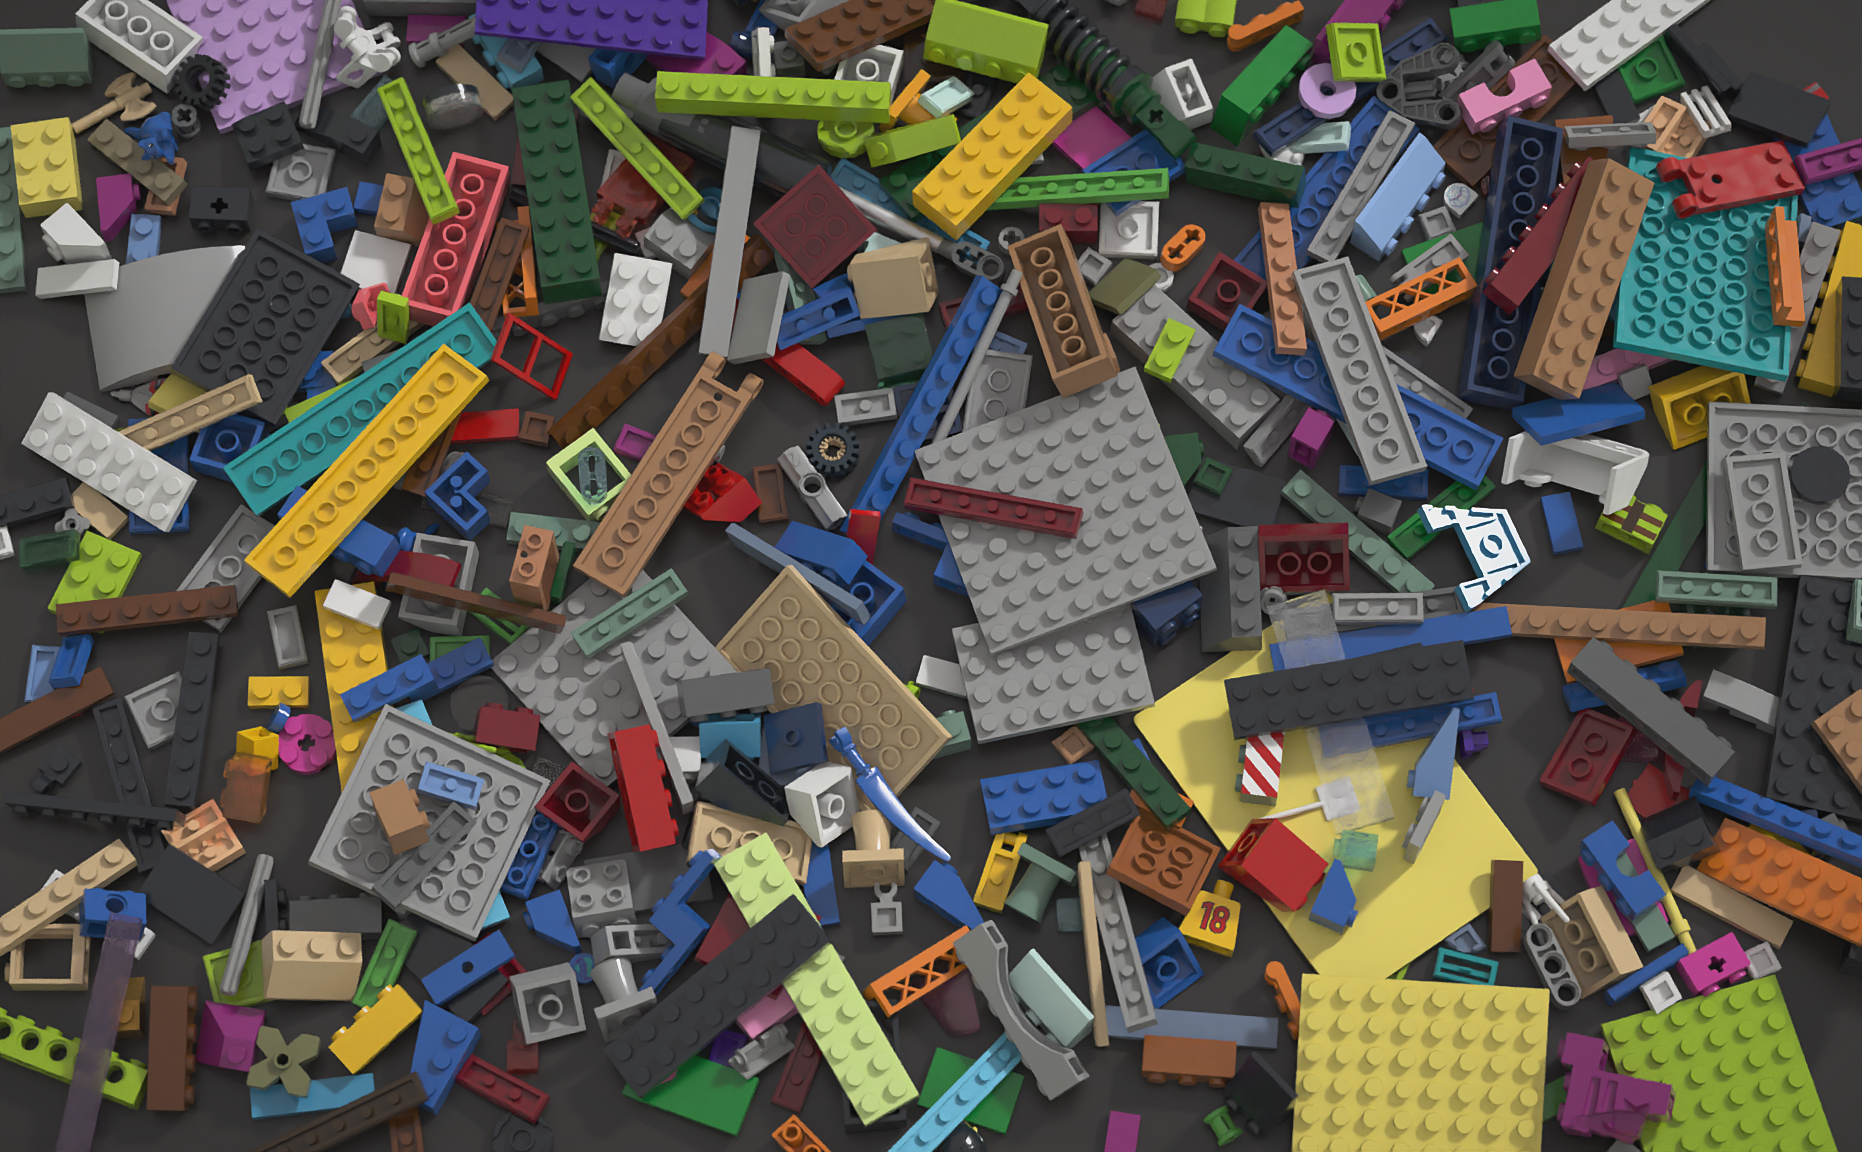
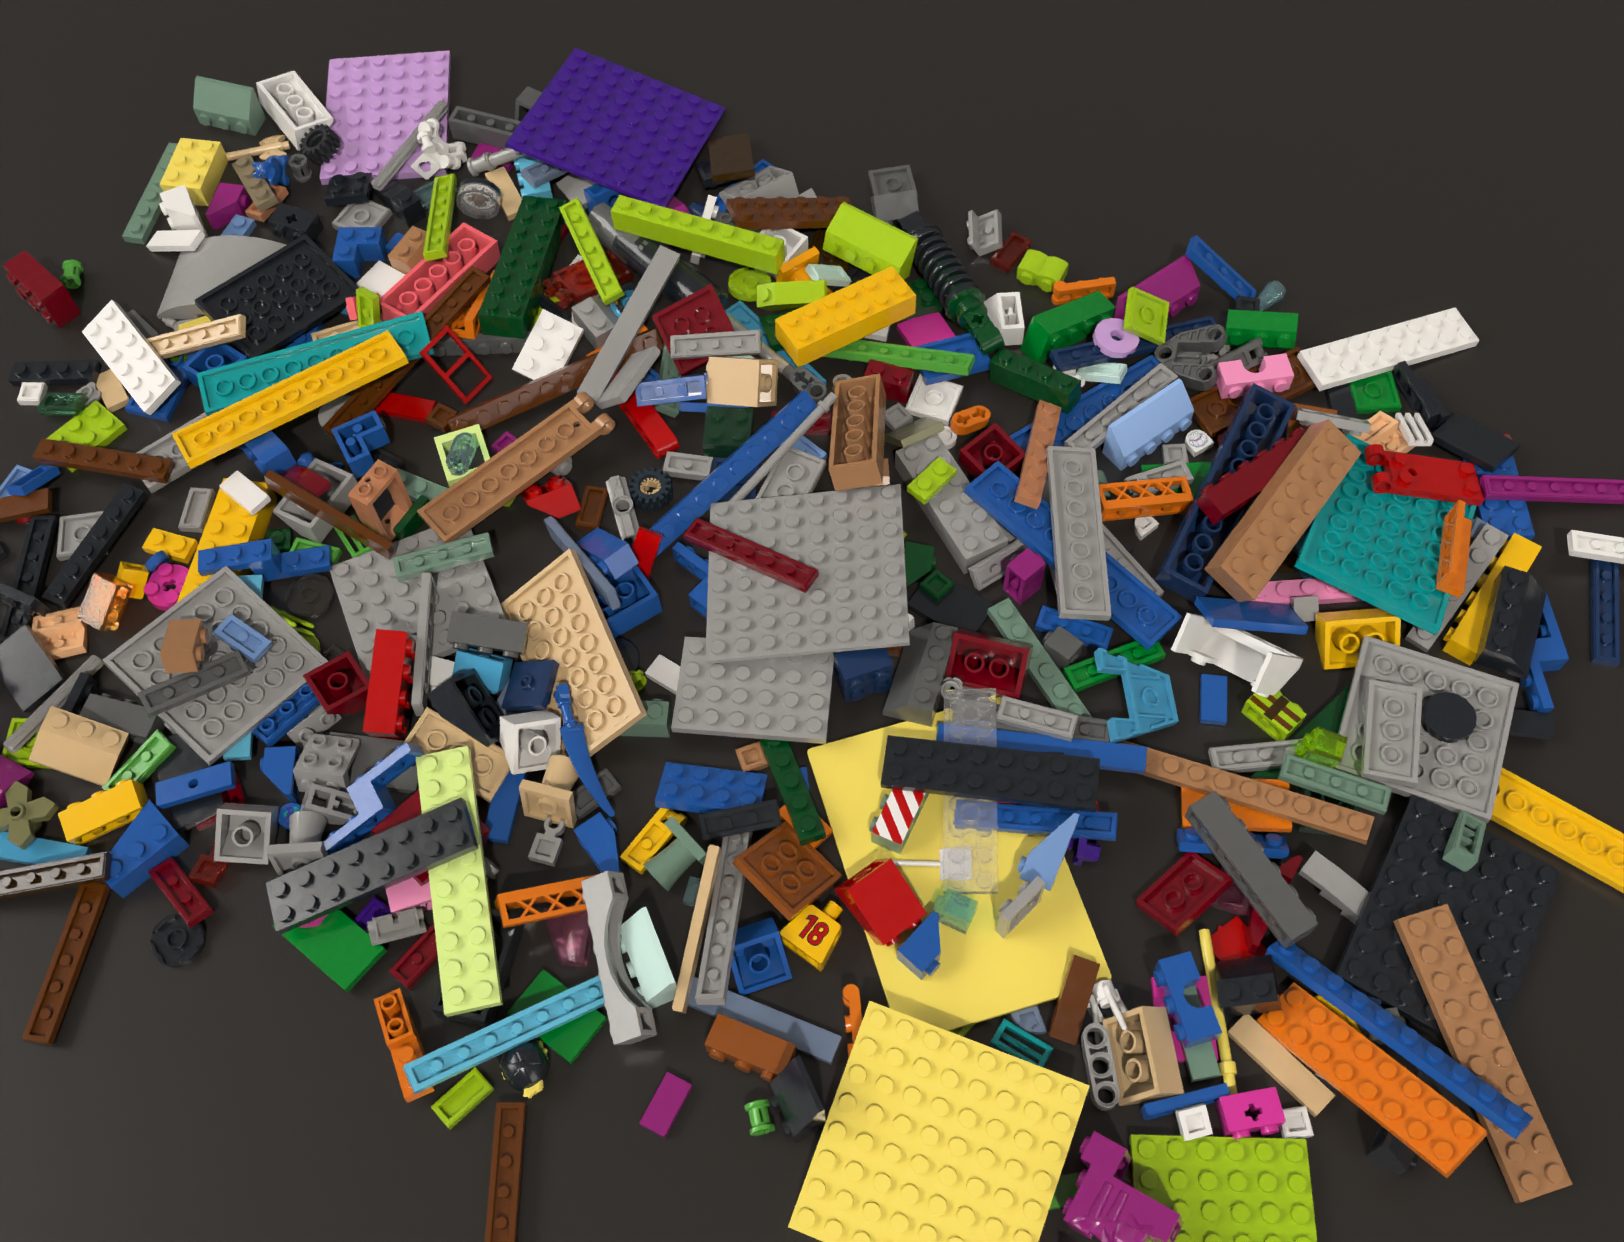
camera: 20 degrees right, 10 degrees down
(506, 729) = (315, 615): dark red brick -> none
(847, 241) = (716, 344): none -> light grey tile
(1631, 576) = (1251, 756): none -> light grey tile
(1693, 555) = (1322, 747): none -> clear neon green brick

